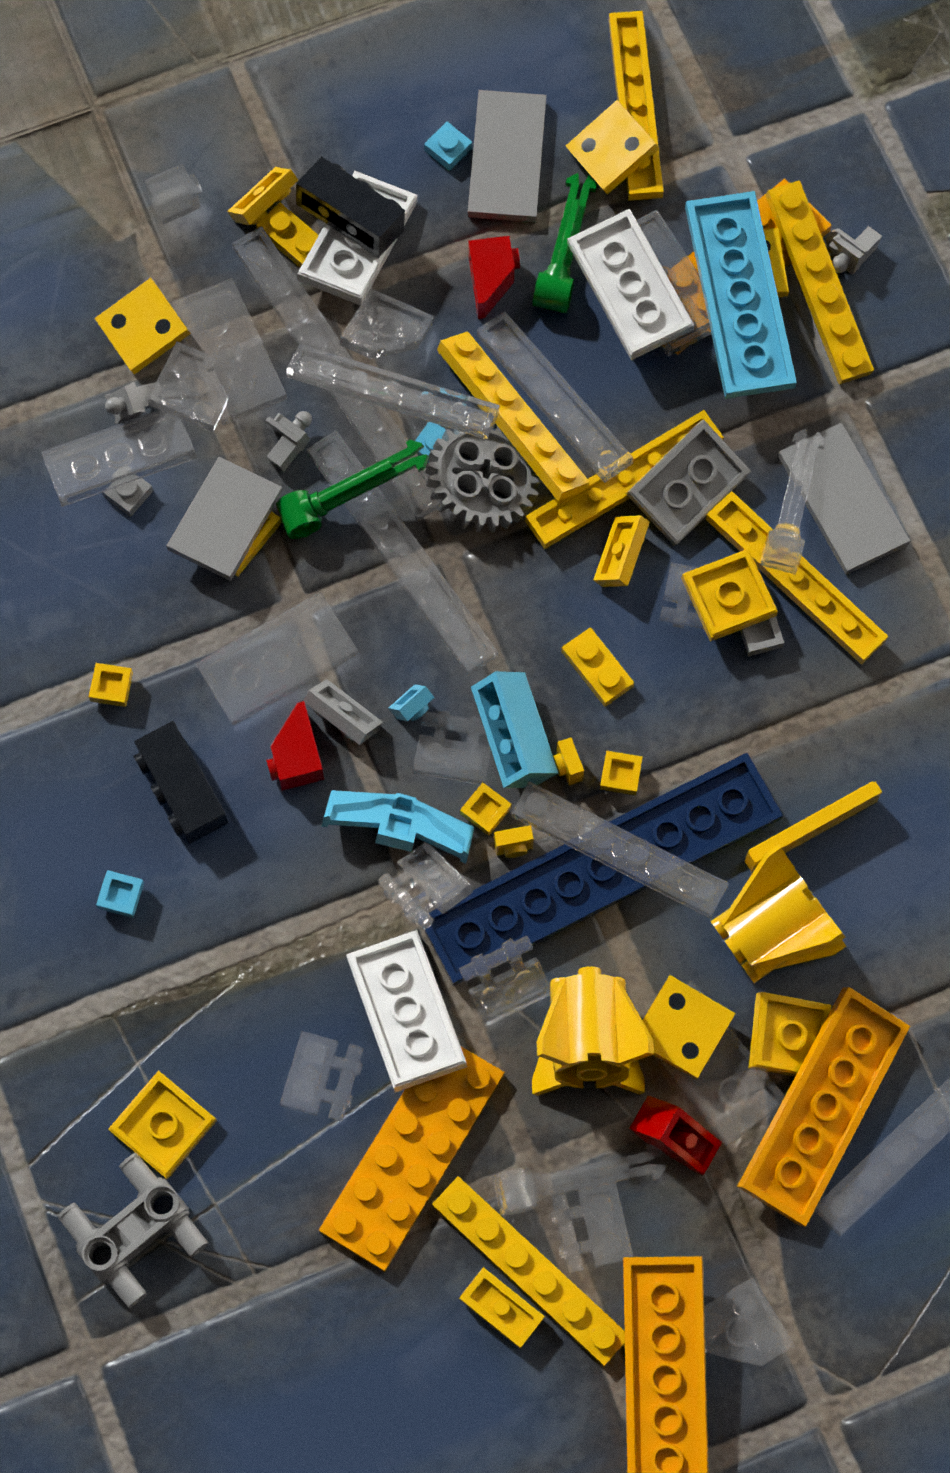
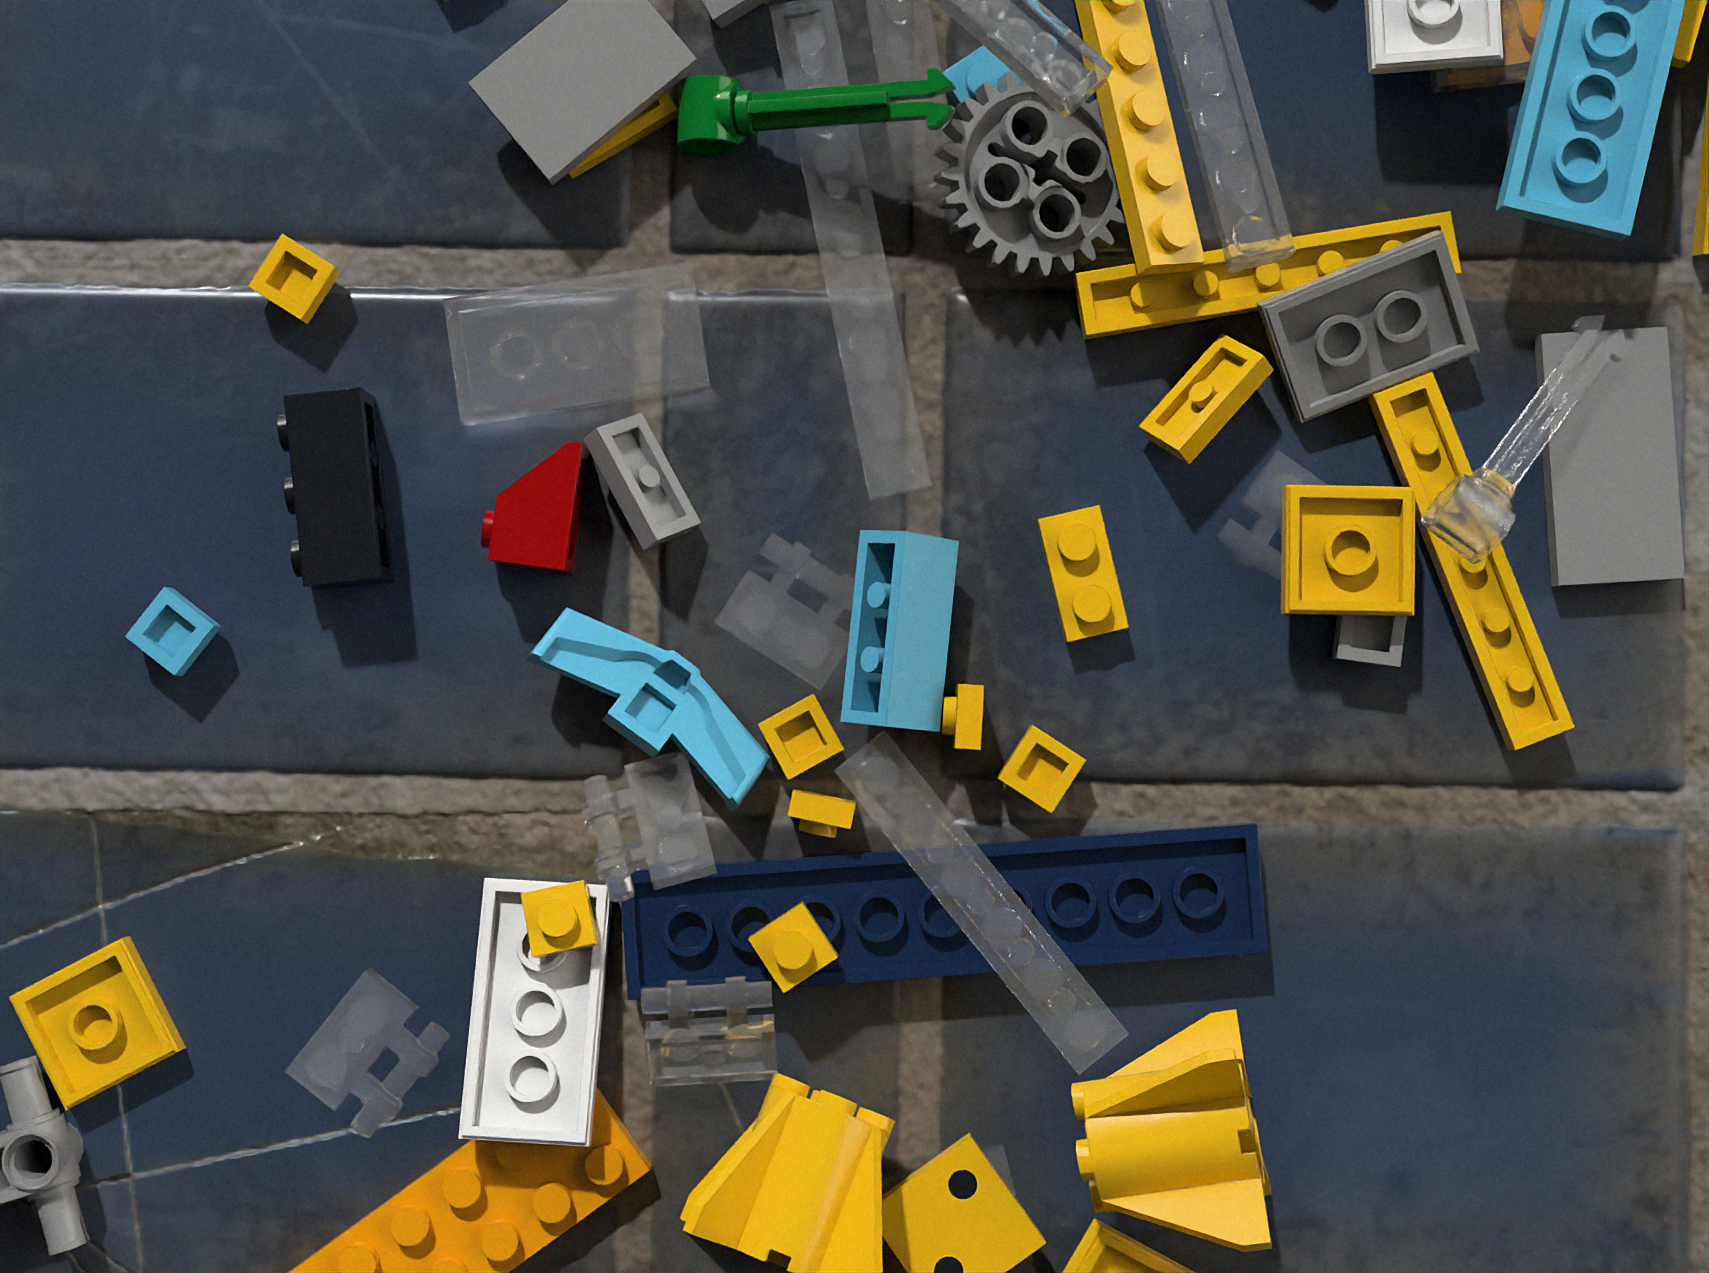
camera: 30 degrees right, 15 degrees up
(397, 954) = (559, 919): none -> yellow plate
(412, 703) = (756, 514): medium azure plate -> none
(530, 915) = (793, 947): none -> yellow plate
(816, 823) = (1308, 987): yellow tile -> none

